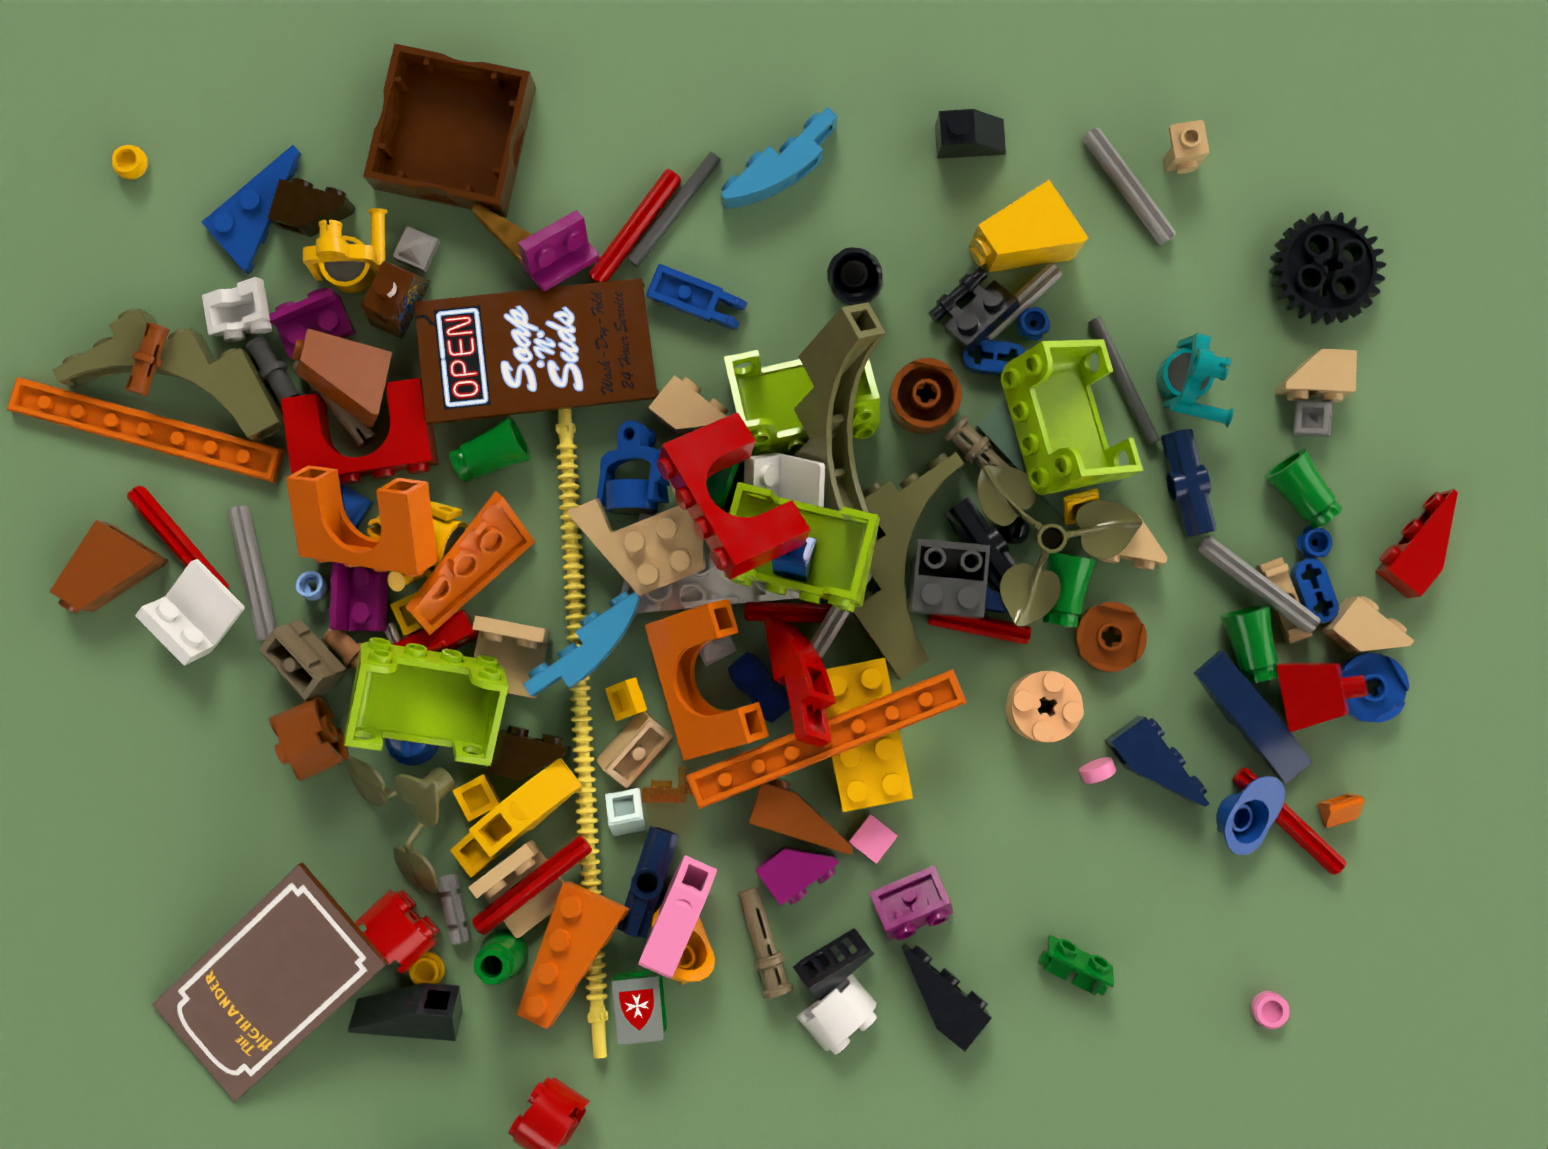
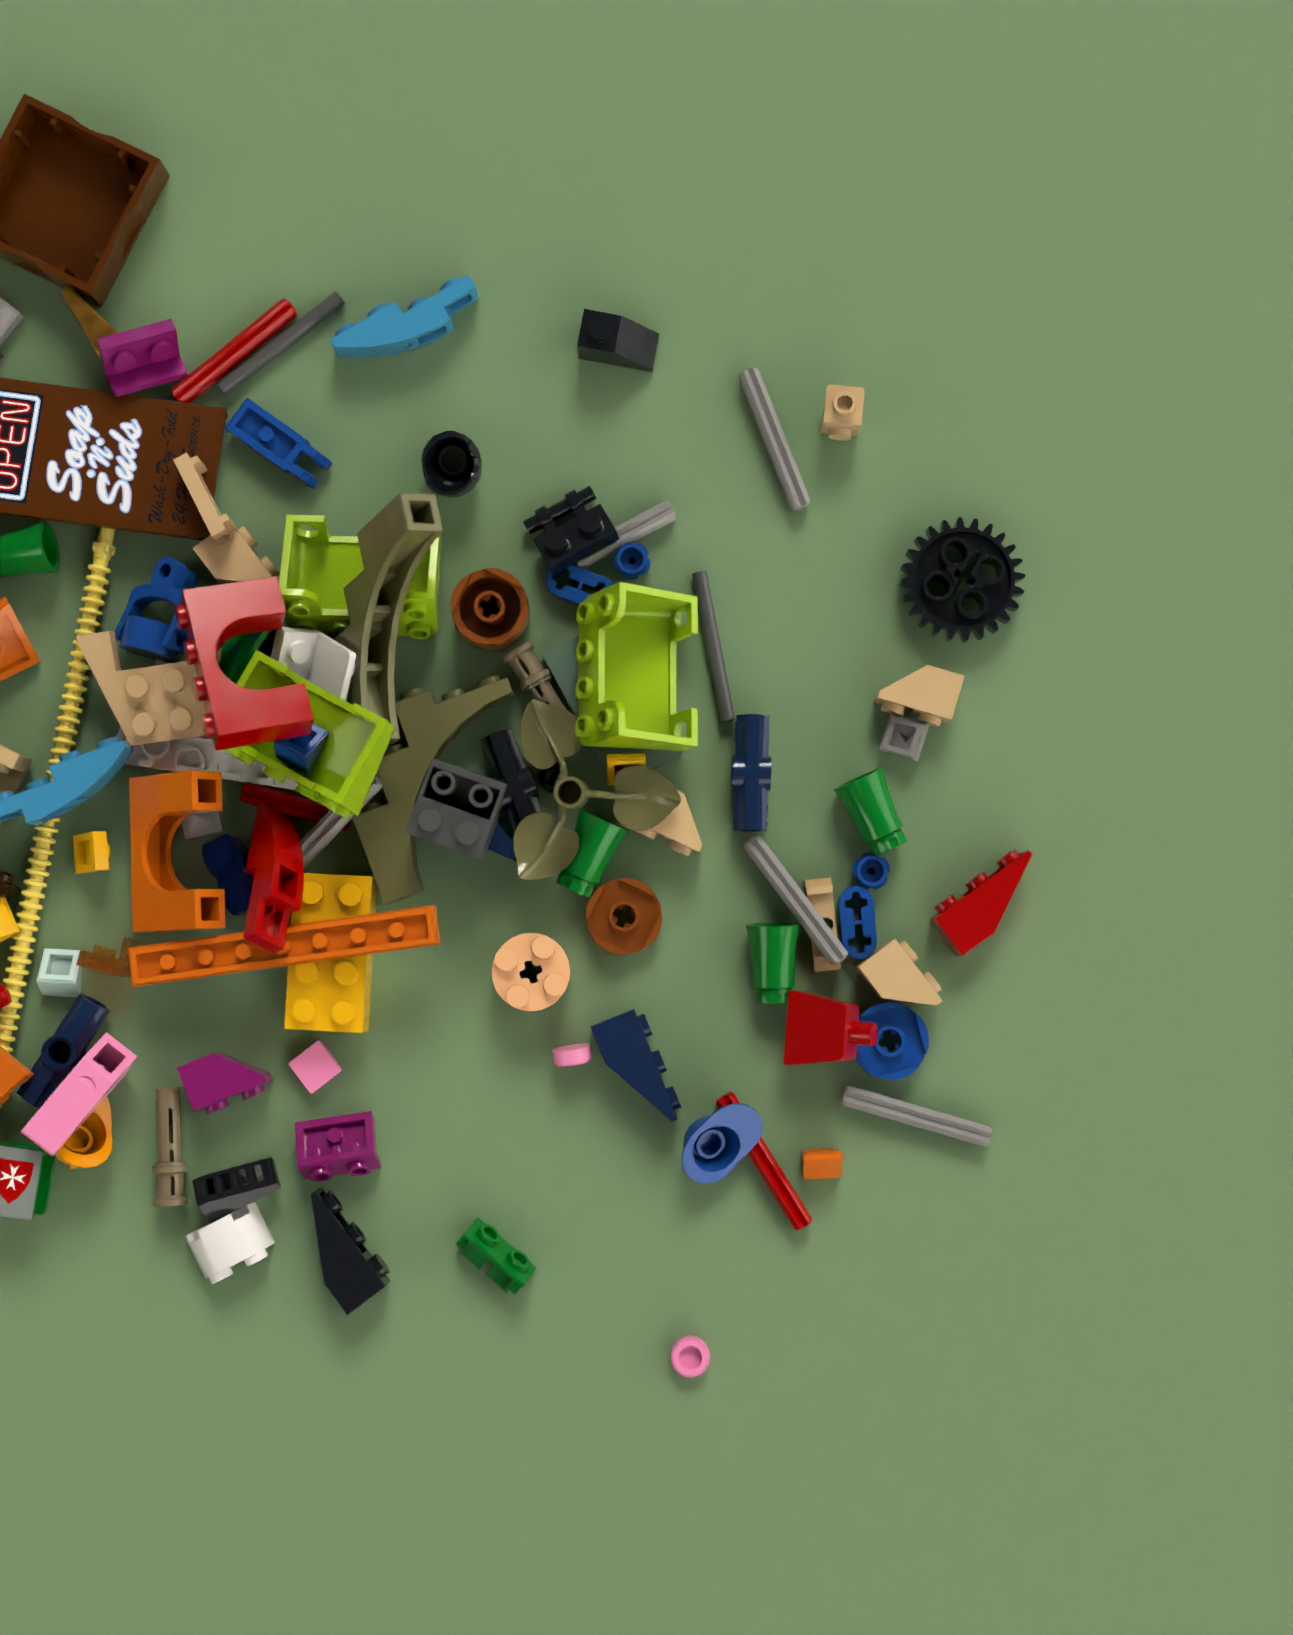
camera: 15 degrees right, 0 degrees up
(630, 341) = (217, 524): none -> tan piece
(634, 748) = (87, 908): tan slope -> none
(790, 814) = (234, 1019): dark orange slope -> none
(984, 627) = (493, 872): red axle -> none
(1028, 233) = (643, 462): yellow slope -> none
(1189, 375) = (779, 661): teal piece -> none
(1252, 717) = (752, 1040): dark blue slope -> none
(1412, 747) = (916, 1116): none -> light grey axle

